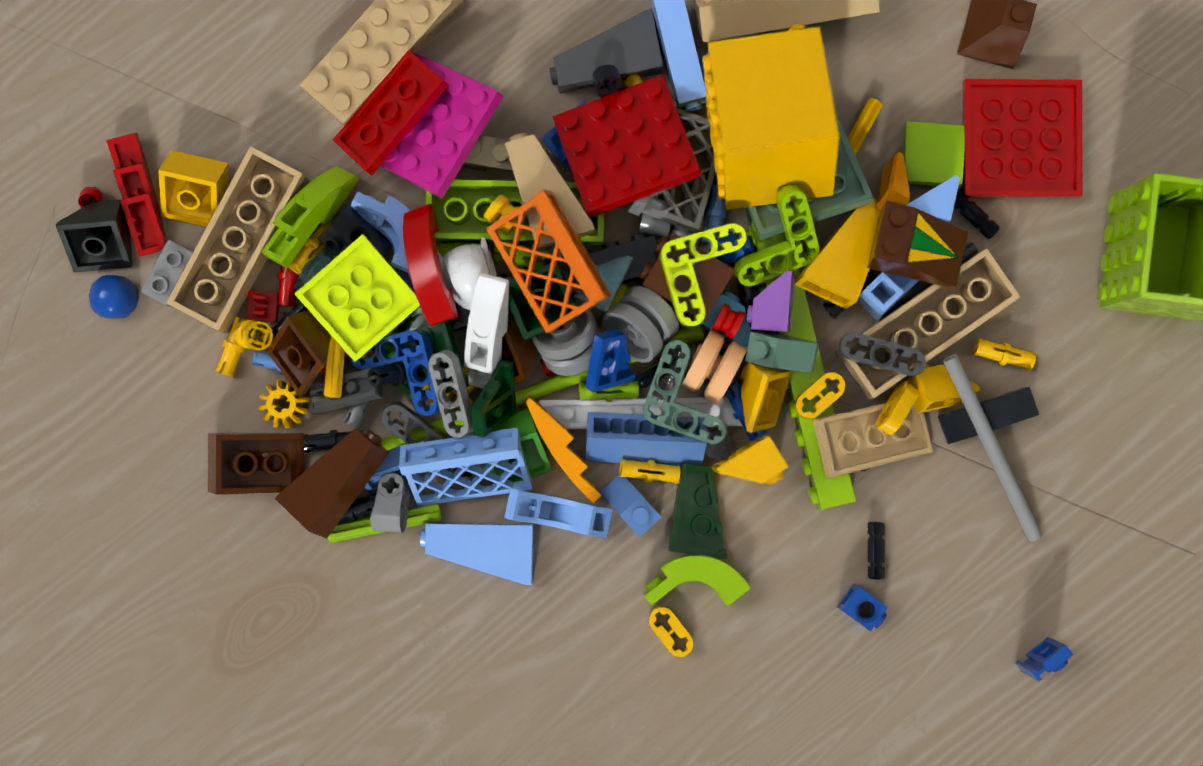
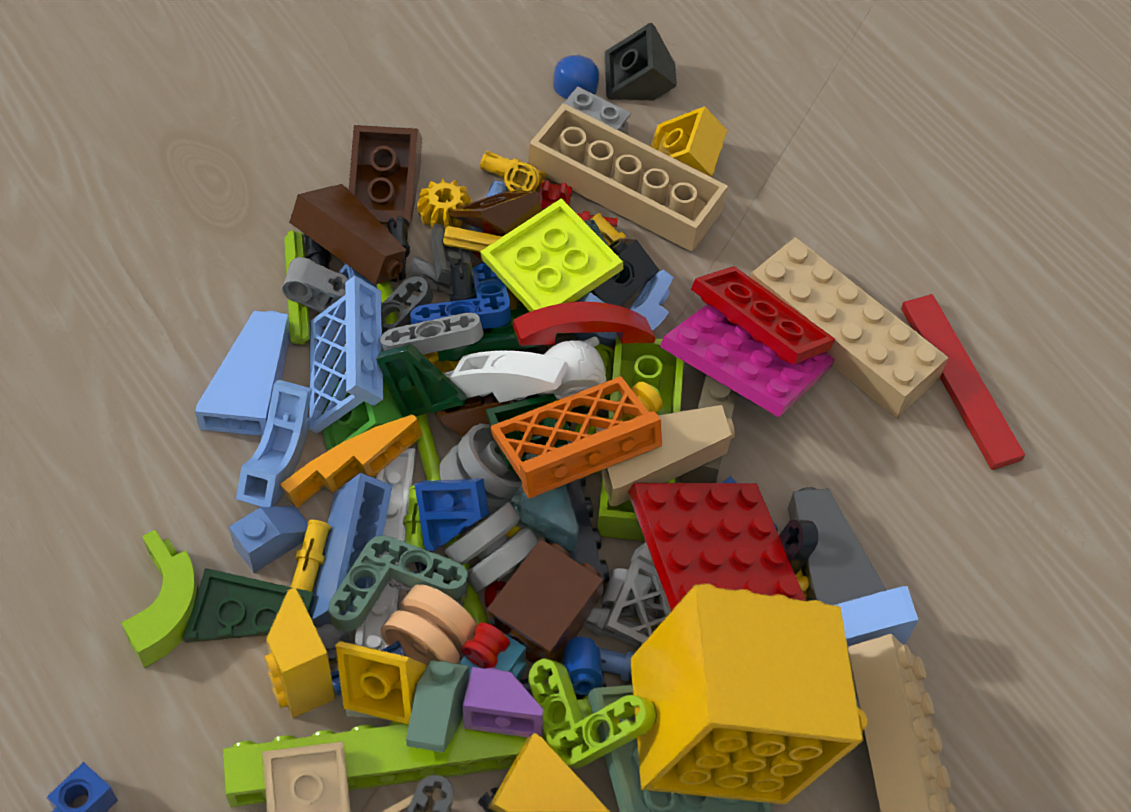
camera: 85 degrees right, 30 degrees down
(86, 196) = (683, 67): red hinge -> none
(137, 194) = (668, 102): red slope -> none
(304, 212) = (655, 231): lime slope -> none
(665, 636) = (105, 568): yellow beam -> none
(685, 267) = (558, 585): neon yellow beam -> none
(824, 401) = (367, 760): yellow beam -> none

